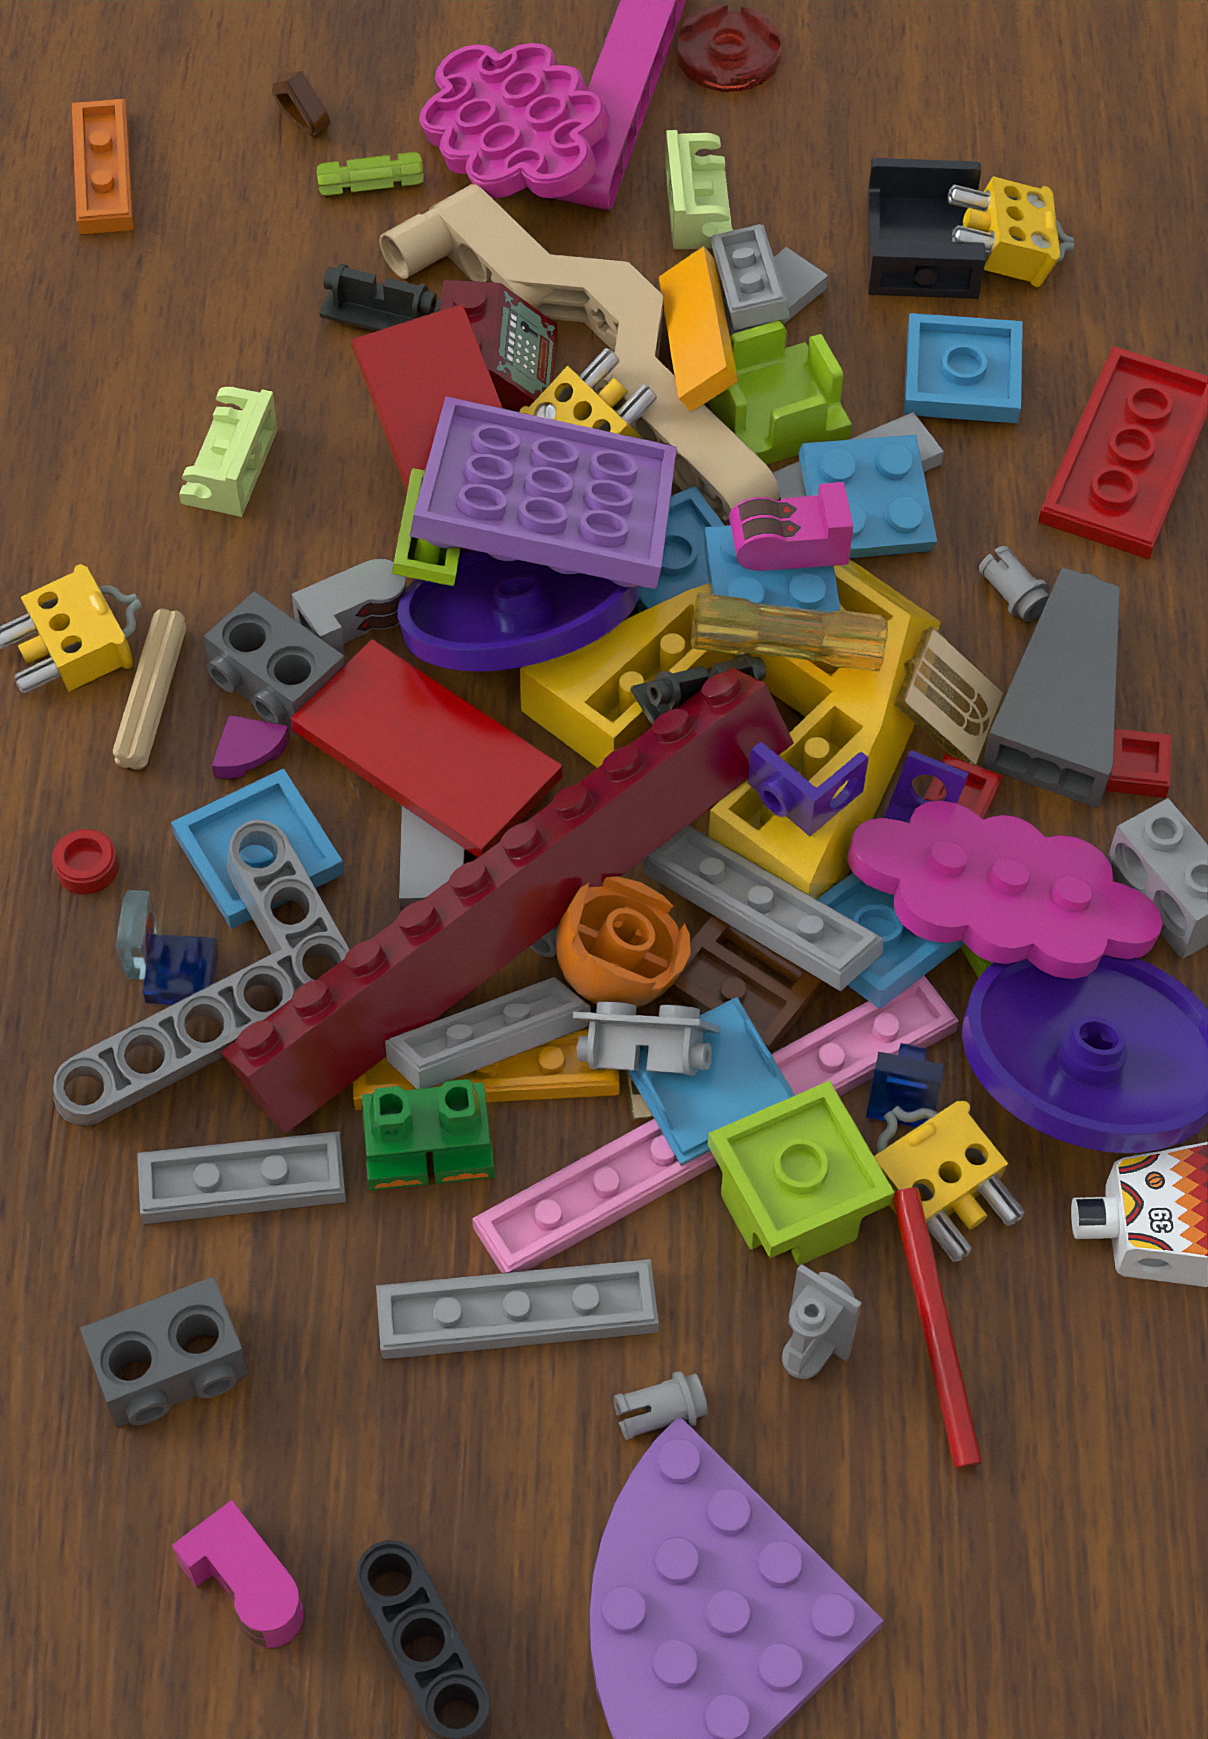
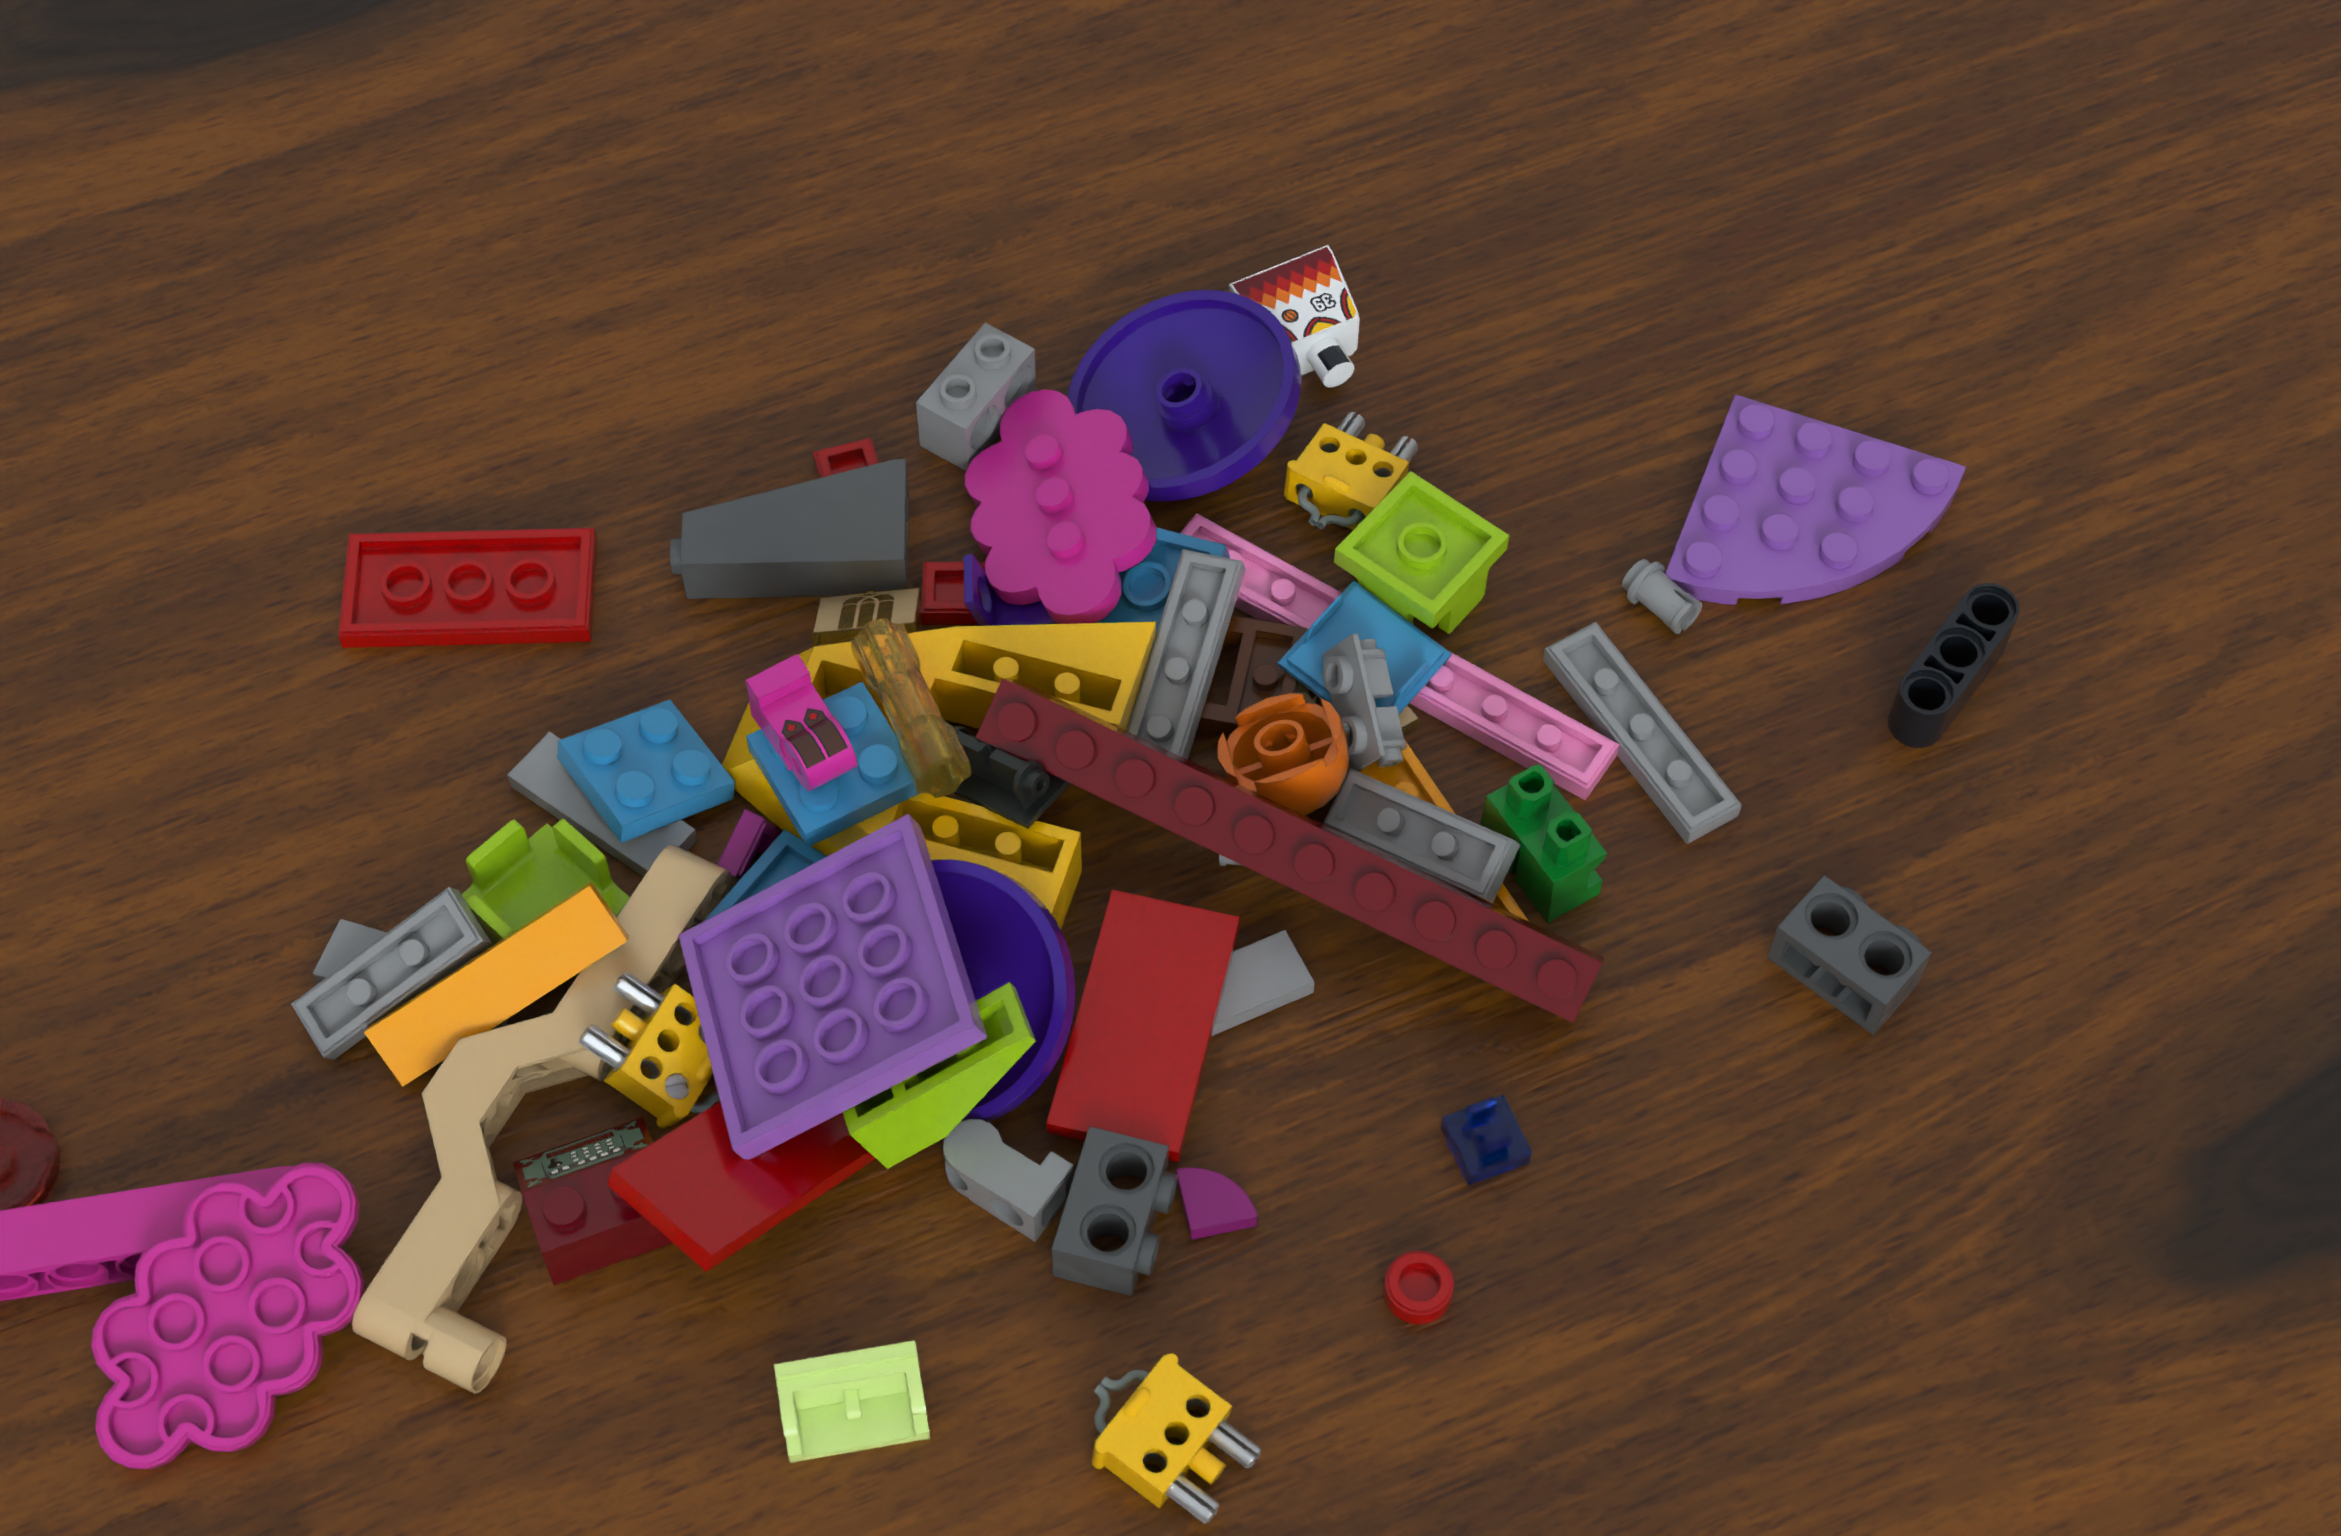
camera: 115 degrees left, 0 degrees up
(135, 931) = (1481, 1180): clear light blue tile -> none
(149, 689) = (1191, 1329): tan axle -> none
(208, 832) = (1327, 1128): dark azure plate -> none
(221, 1001) = (1519, 1056): light grey beam -> none
(241, 1177) = (1655, 990): light grey tile -> none
(247, 1571) = (1985, 797): dark pink leg -> none
(364, 303) = (565, 1349): pearl dark grey hinge -> none
(370, 173) = (354, 1465): lime axle -> none
(695, 190) = (262, 1099): yellowish green hinge -> none
(793, 796) = (1090, 629): dark purple bracket -> none
(821, 1321) = (1552, 490): light grey hinge -> none
(904, 1082) = (1282, 524): clear blue tile -> none
(913, 230) = (234, 856): black panel -> none
(936, 1328) = (1489, 430): red bar -> none
(963, 368) = (425, 752): dark azure plate -> none
(1016, 227) = (212, 760): yellow piece -> none
(1018, 587) = (696, 614): light grey pin -> none

